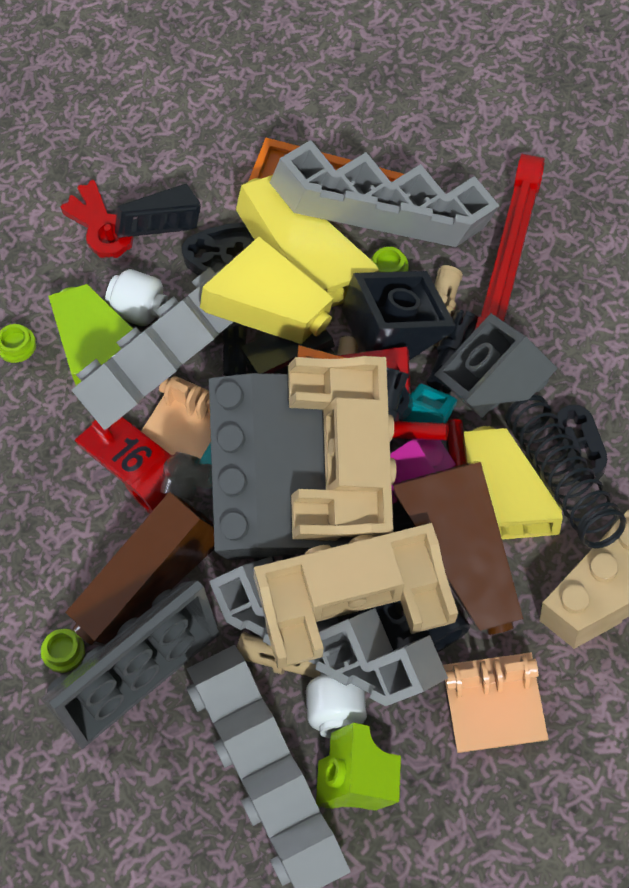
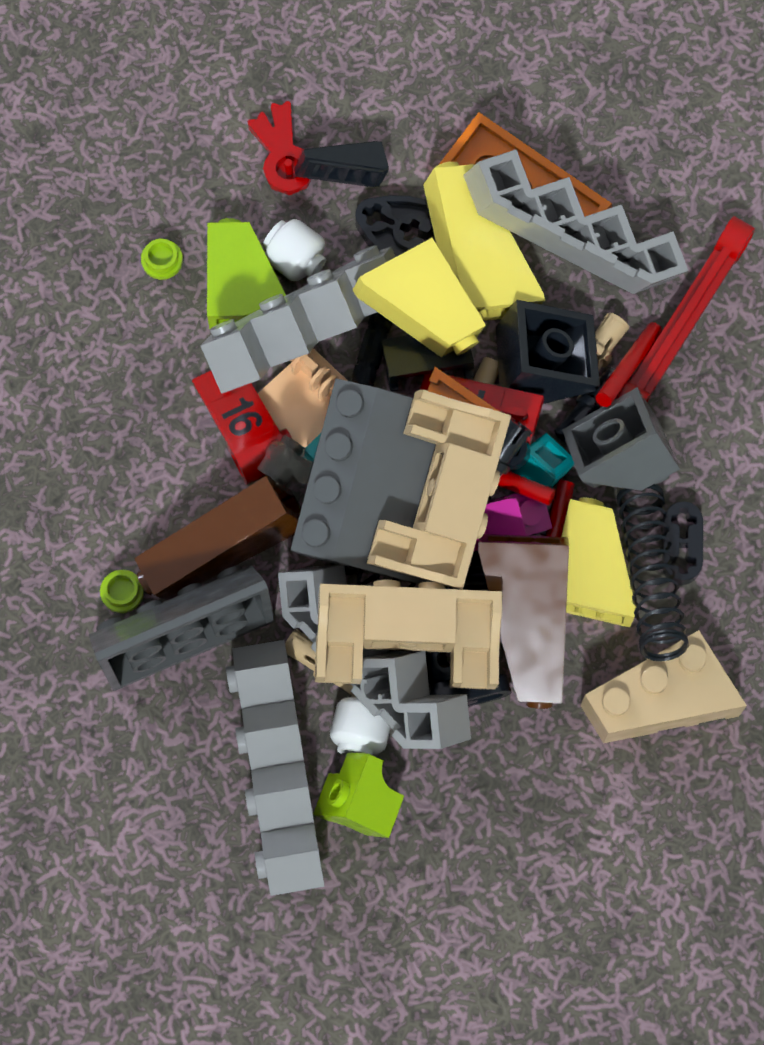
camera: 10 degrees right, 10 degrees up
(390, 260) = (560, 292): lime plate -> none
(474, 302) = (628, 365): none -> red bar
(495, 702) = (510, 771): light nougat hinge -> none

